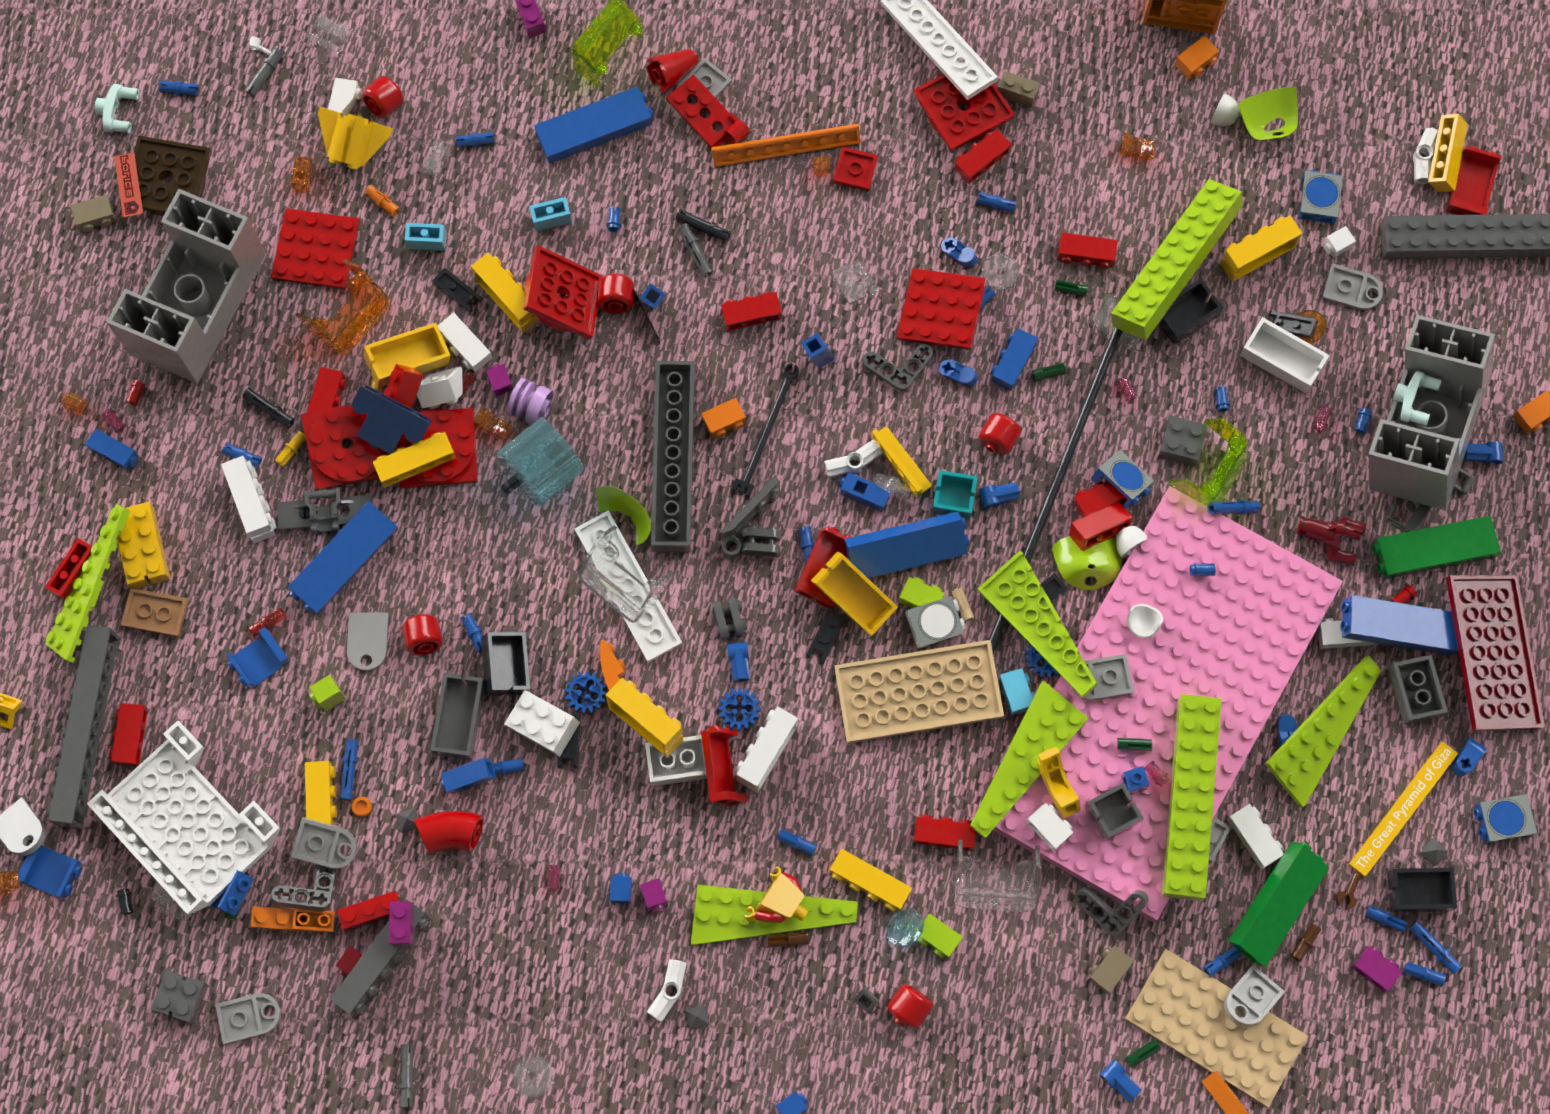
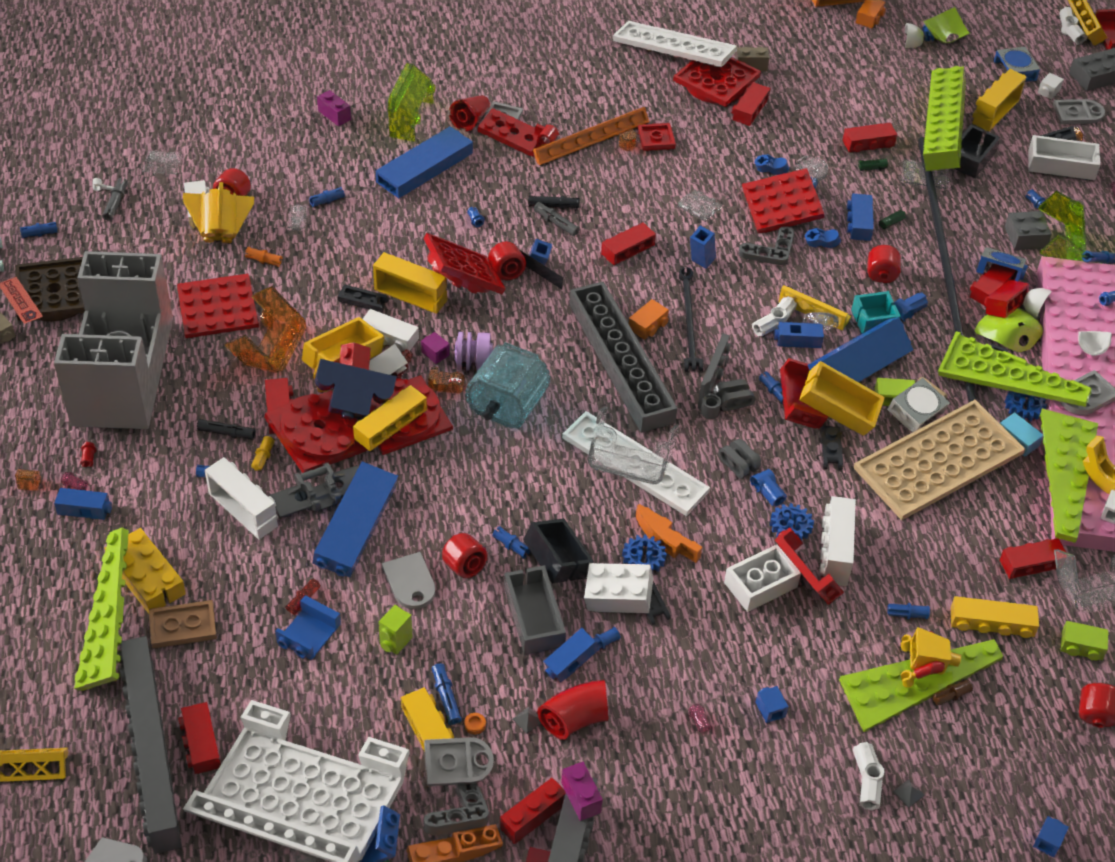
camera: 25 degrees left, 25 degrees down
(69, 569) = (76, 616): red brick -> none
(302, 174) = (182, 257): clear orange leg -> none
(425, 236) = (317, 266): medium azure brick -> none
(550, 214) = (419, 223): medium azure brick -> none
(617, 500) = (594, 395): lime piece -> none
(645, 717) = (719, 540): yellow piece -> none
(654, 896) = (809, 694): magenta brick -> none
(869, 997) = (1058, 715): dark grey slope -> none
(905, 927) = (1052, 642): clear light blue plate -> none
(996, 202) = (779, 129): blue pin -> none
(1126, 388) = (959, 212): clear pink pin -> none
(1137, 147) = (863, 71): clear orange leg -> none

